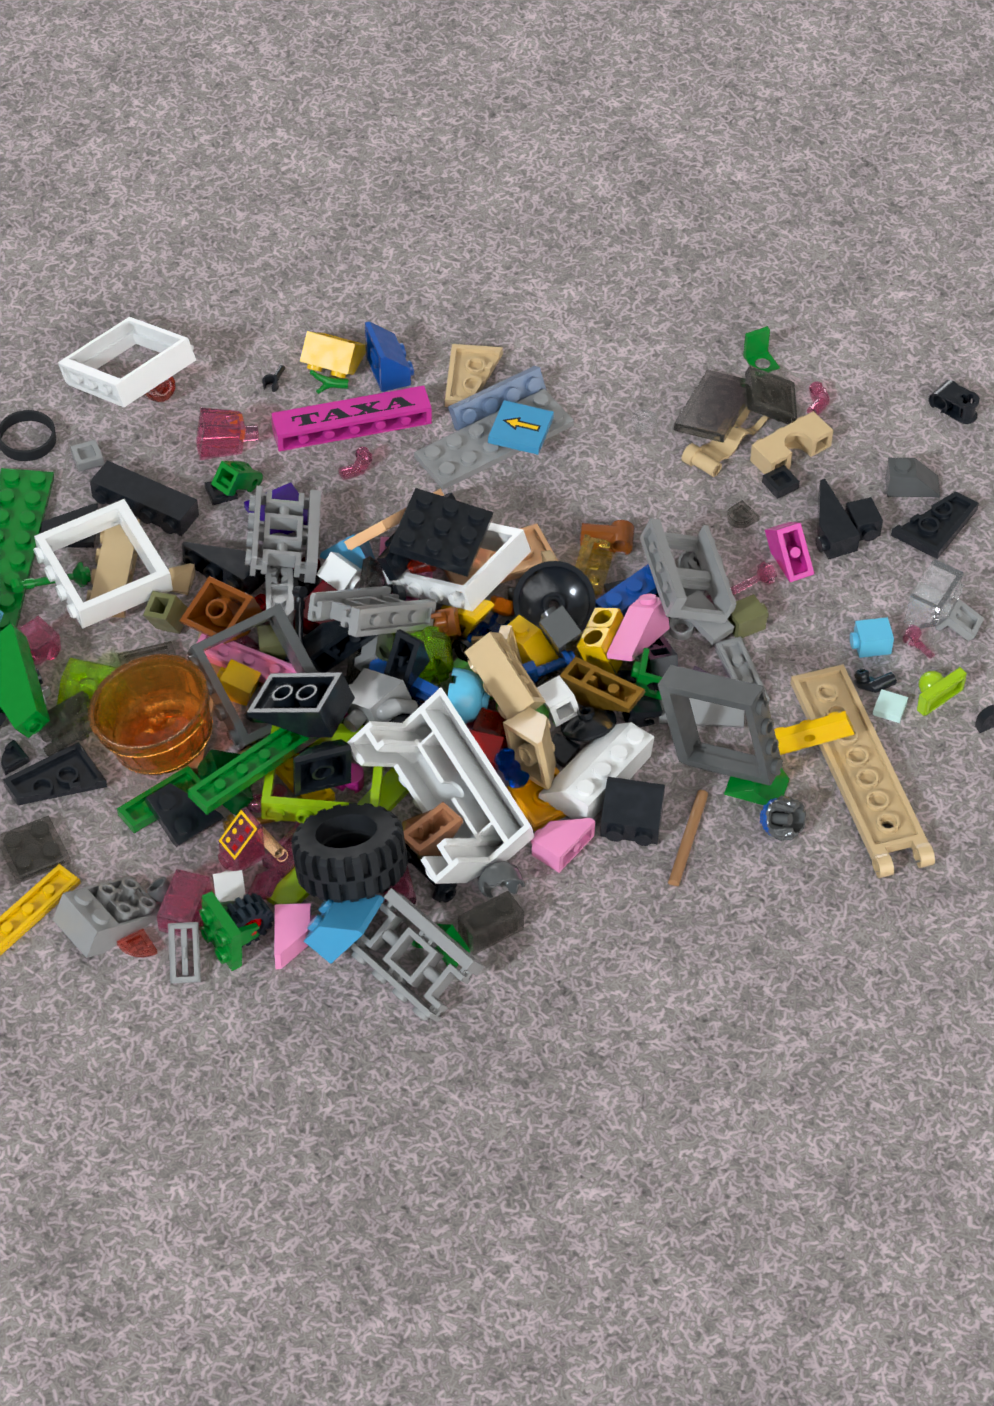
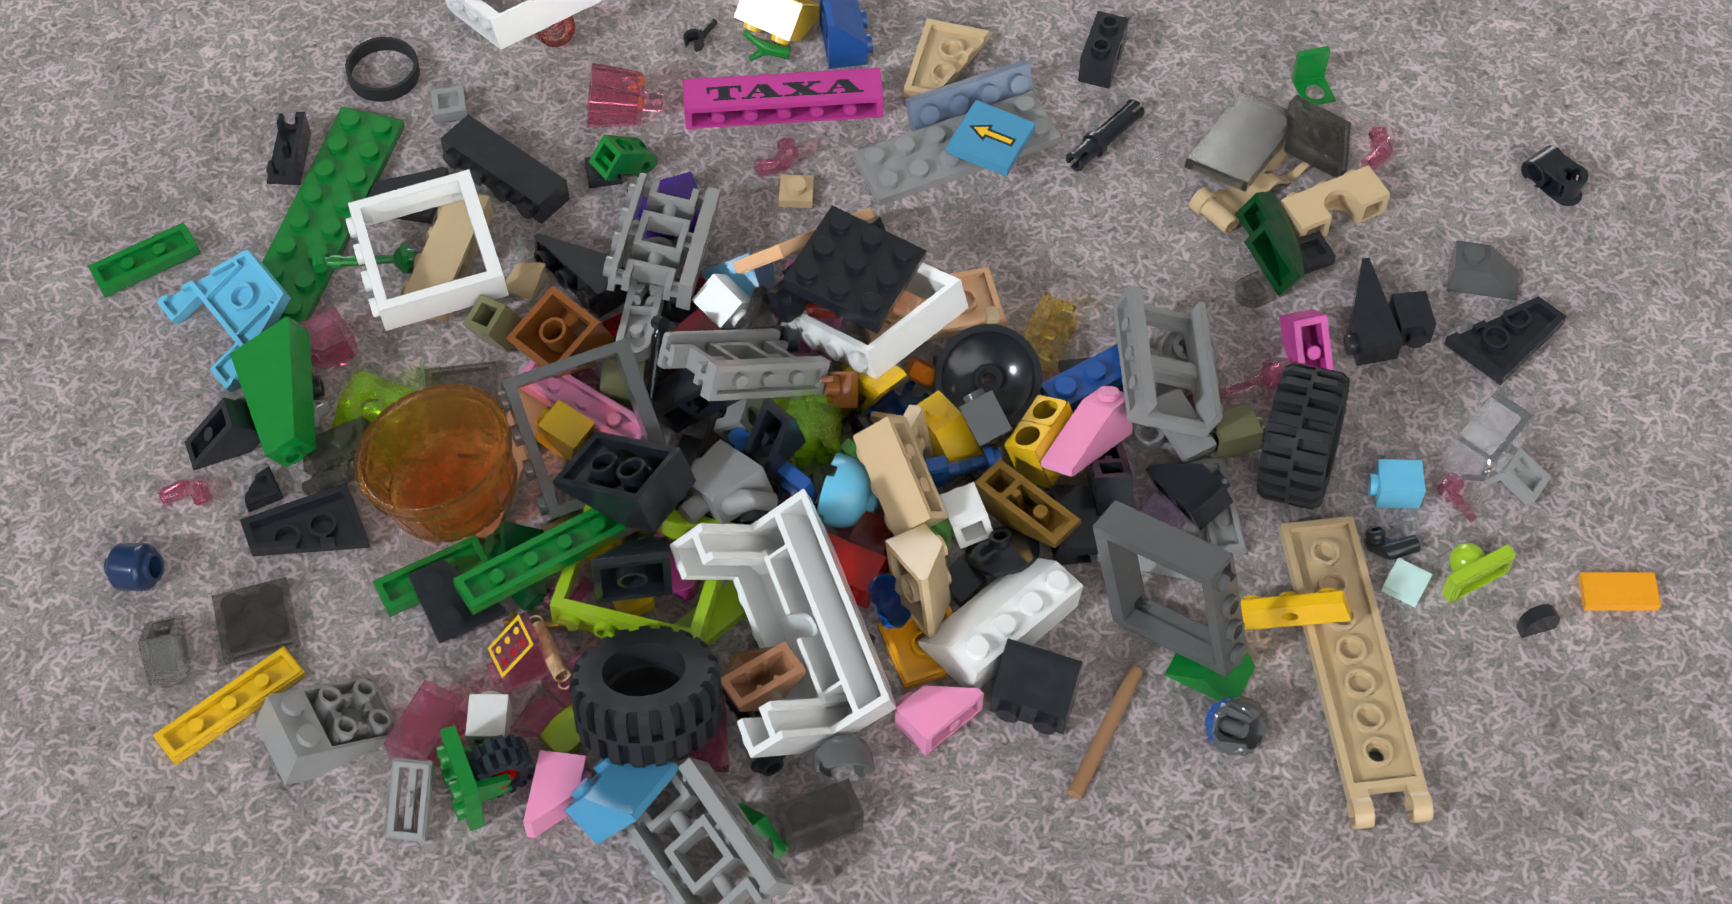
camera: 10 degrees right, 5 degrees up
(137, 944) = (357, 775): clear red tile -> none
(158, 889) = (399, 700): dark grey hinge -> none
(376, 486) = (796, 191): none -> tan plate
(594, 350) = (1103, 49): none -> black brick
(602, 421) = (1096, 142): none -> black pin
(619, 534) = (1089, 297): dark orange piece -> none
(643, 679) = (1081, 503): green bracket -> none
(721, 658) = (1192, 490): none -> black slope
(749, 476) = (1272, 241): none -> dark green slope
(797, 609) = (1302, 435): none -> black tyre

